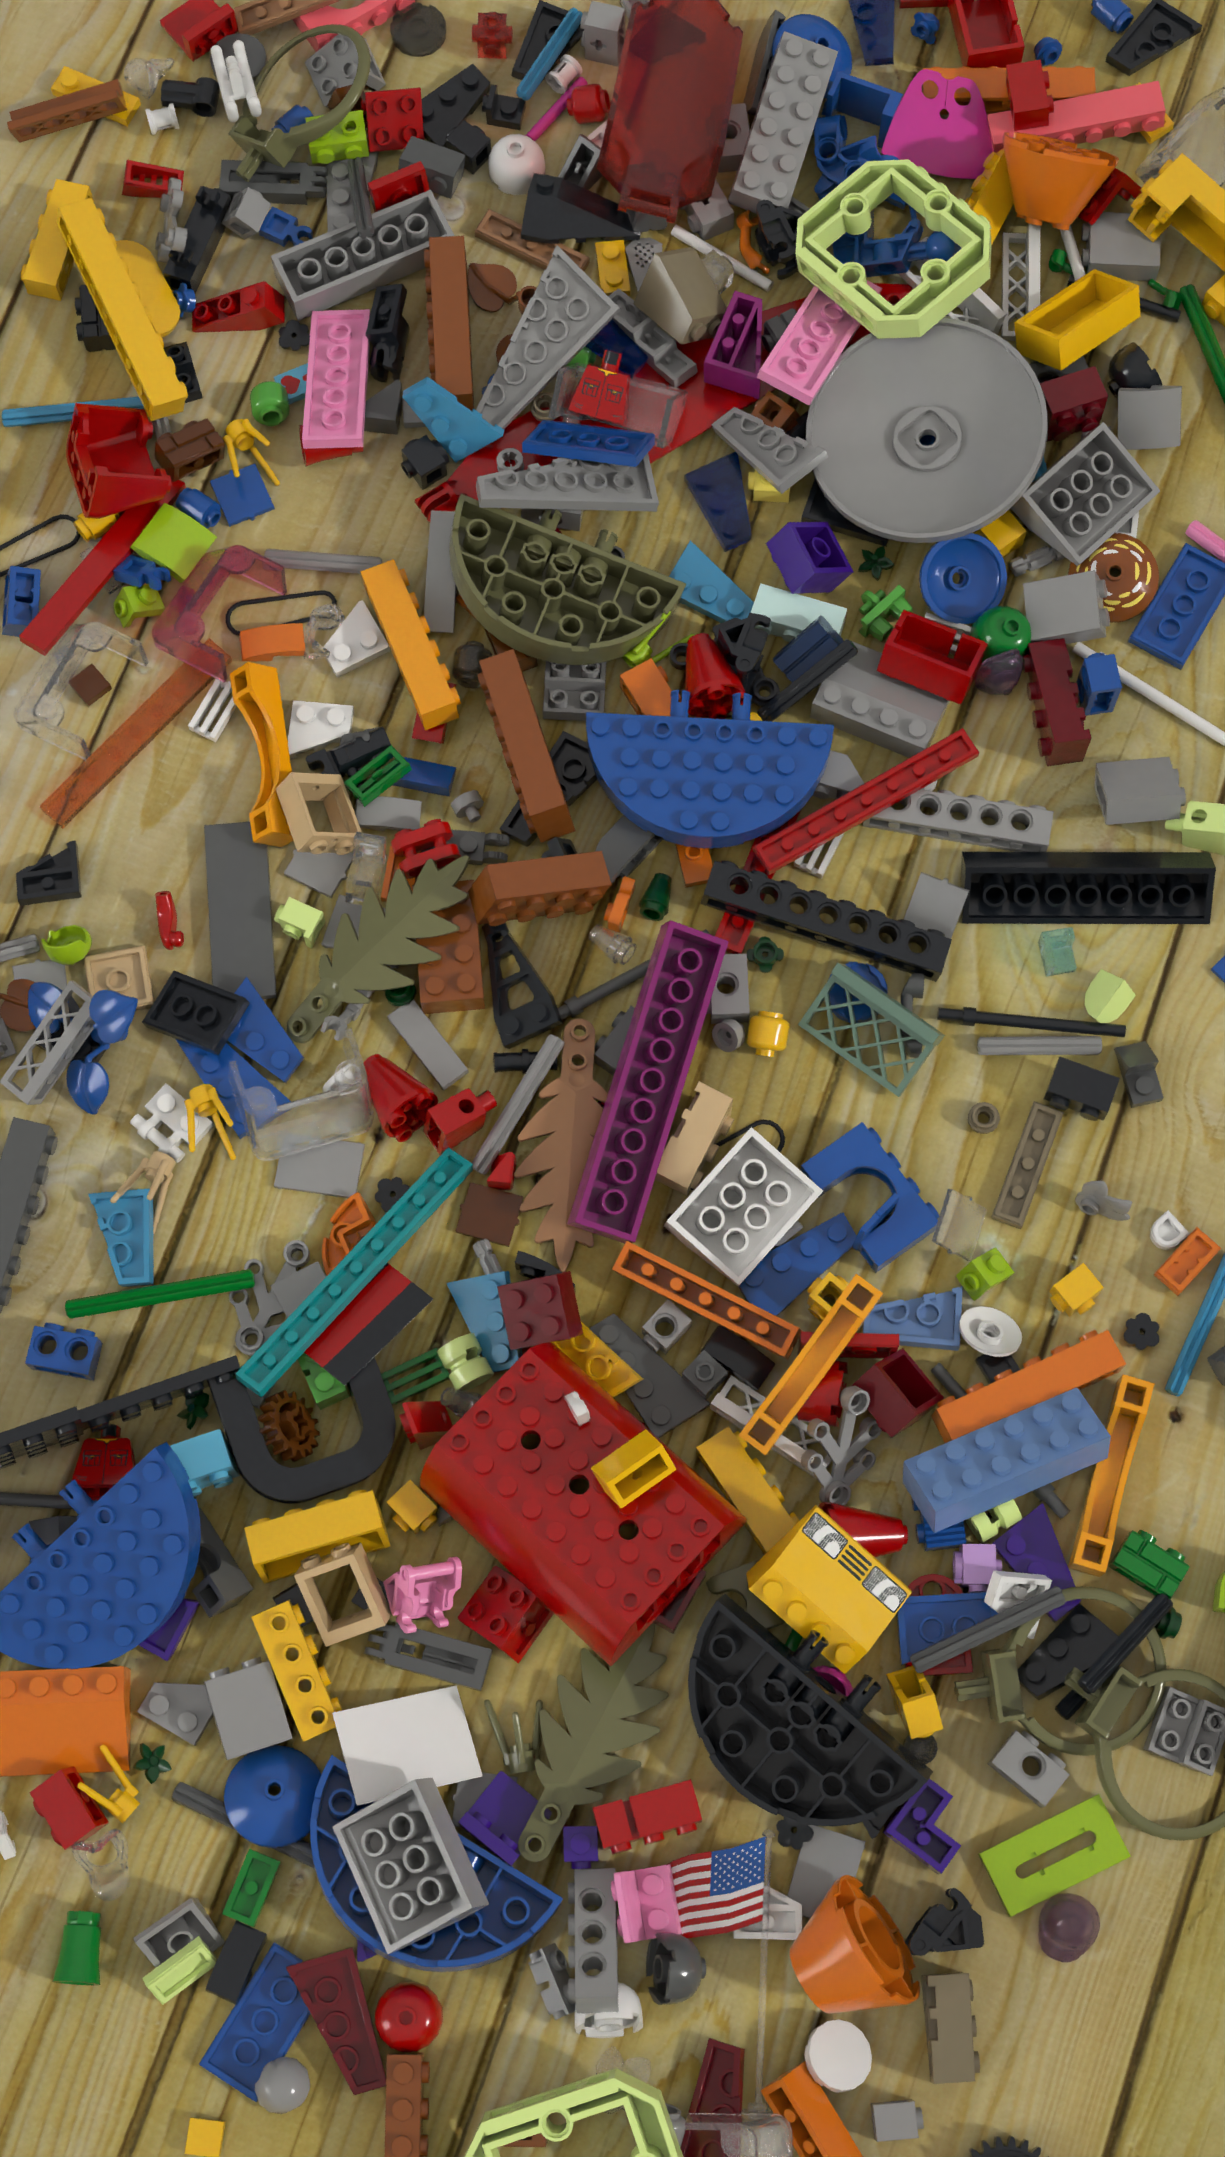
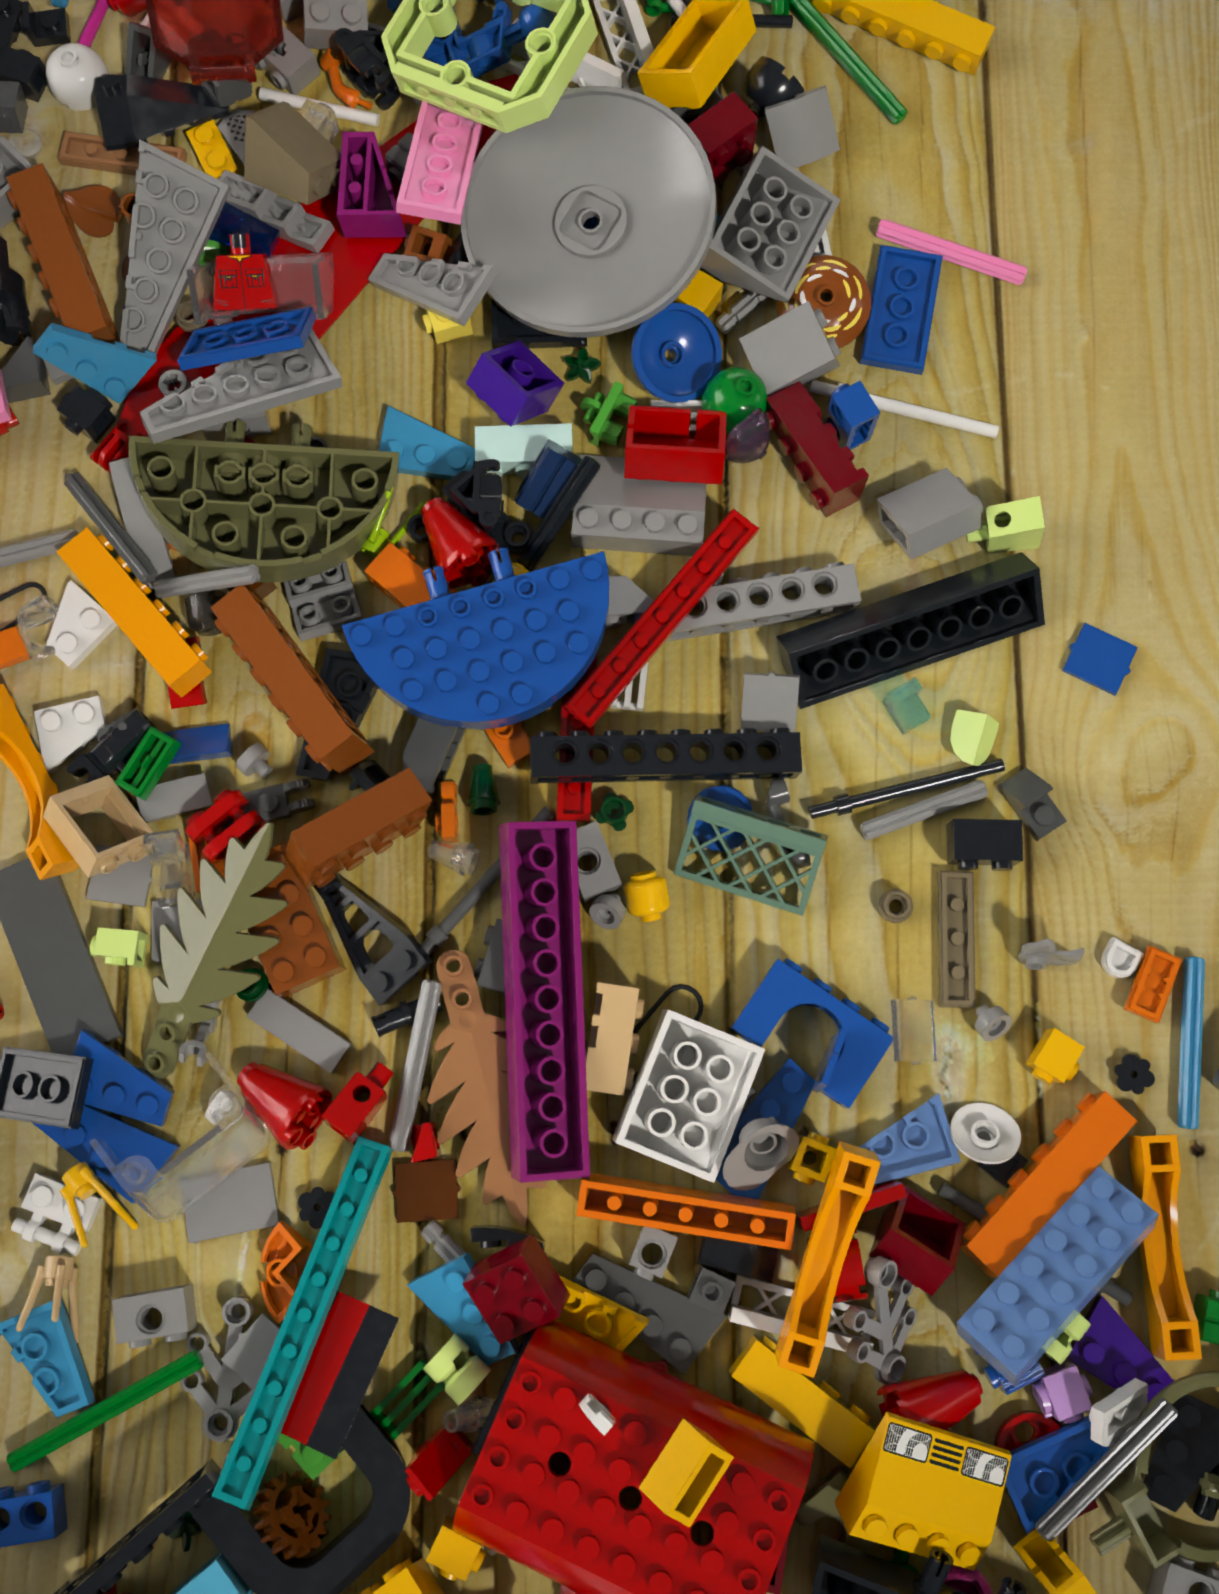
camera: 20 degrees left, 5 degrees up
(213, 1219) = (133, 1311): none -> light grey brick
(413, 566) = (111, 528): none -> dark grey axle
(481, 638) = (207, 581): none -> light grey axle
(722, 500) = (405, 353): clear blue wing -> none
(786, 1274) = (760, 1153): none -> light grey piece
(984, 1273) = (956, 1071): lime bracket -> none
(1032, 1244) = (992, 1022): none -> light grey tile

